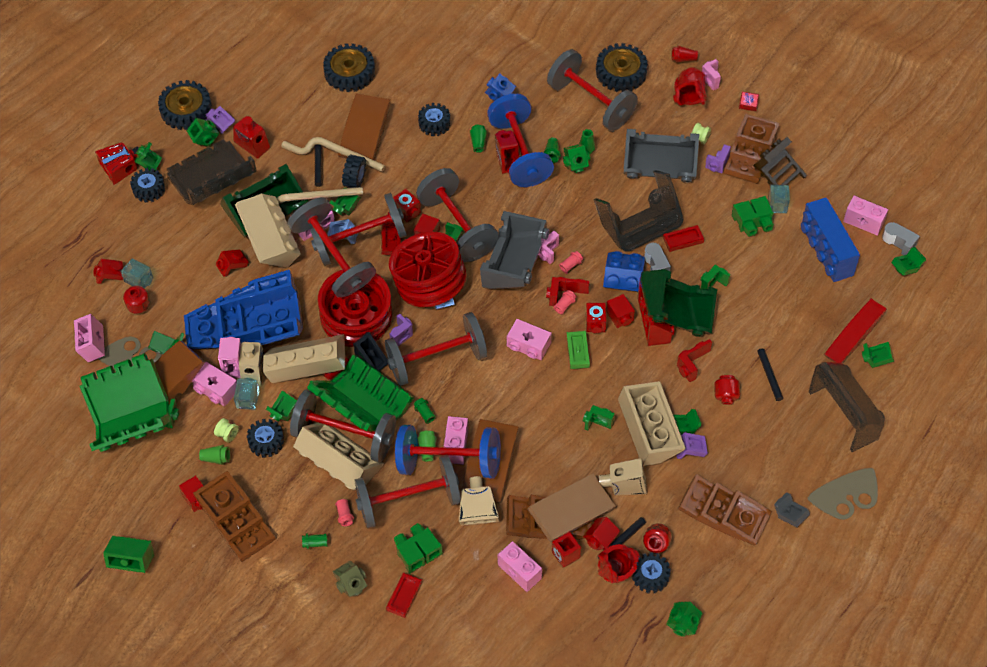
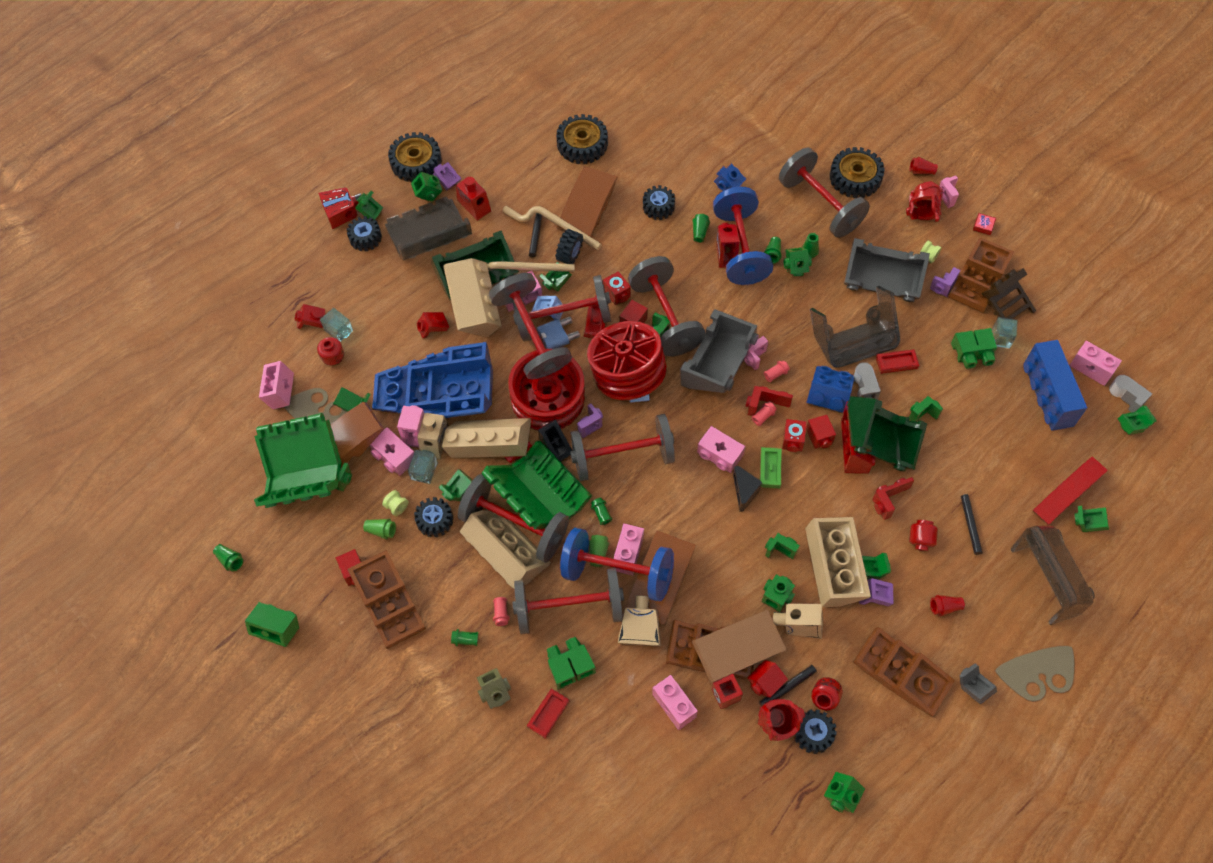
camera: 10 degrees right, 5 degrees up
(74, 503) = (228, 557): none -> green cone
(354, 255) = (553, 334): none -> medium blue piece
(557, 369) = (746, 487): none -> black slope
(600, 458) = (778, 592): none -> green brick
(755, 447) = (943, 605): none -> red cone

